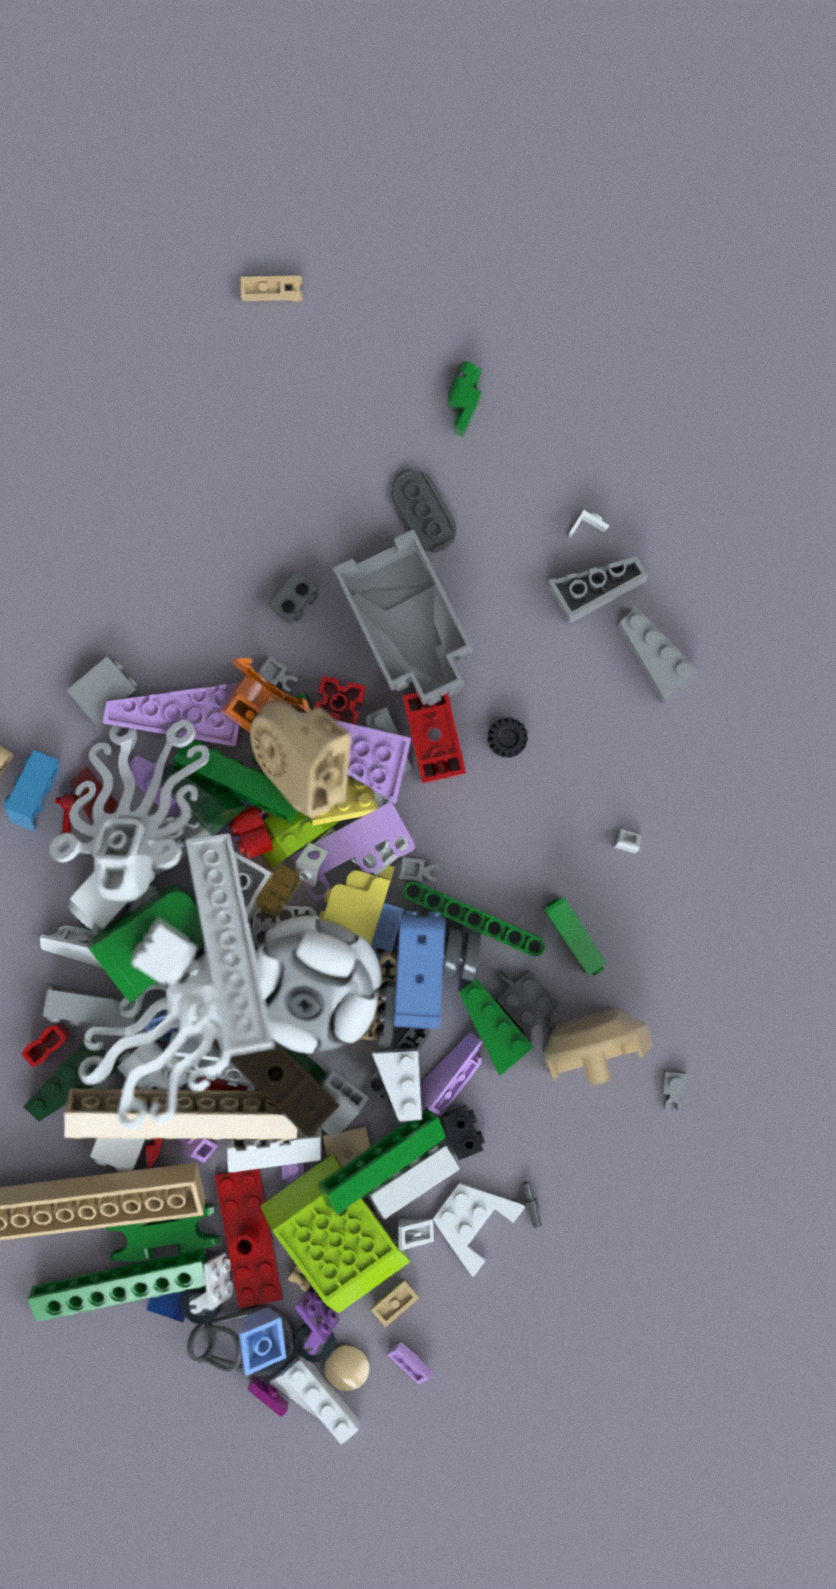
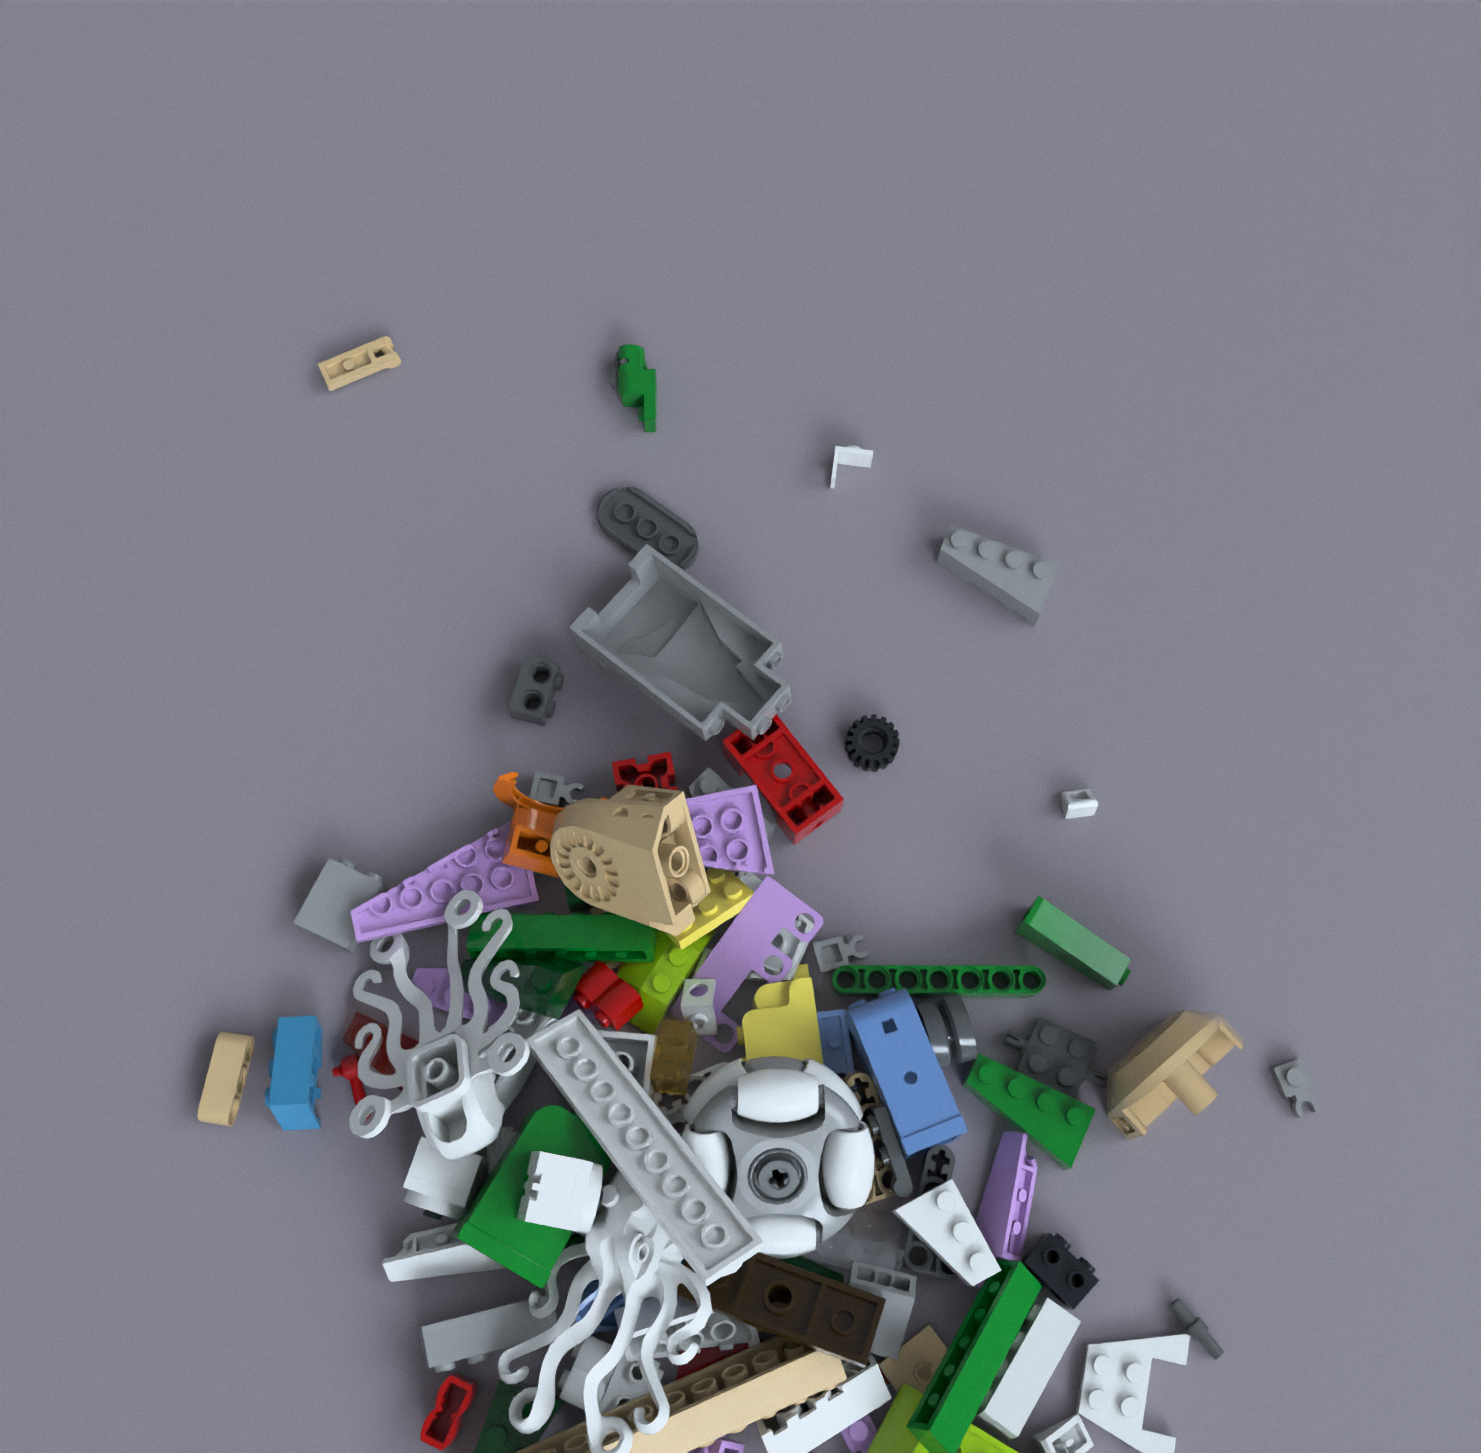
camera: 25 degrees left, 15 degrees down
(594, 588) = (890, 528): light grey wedge -> none

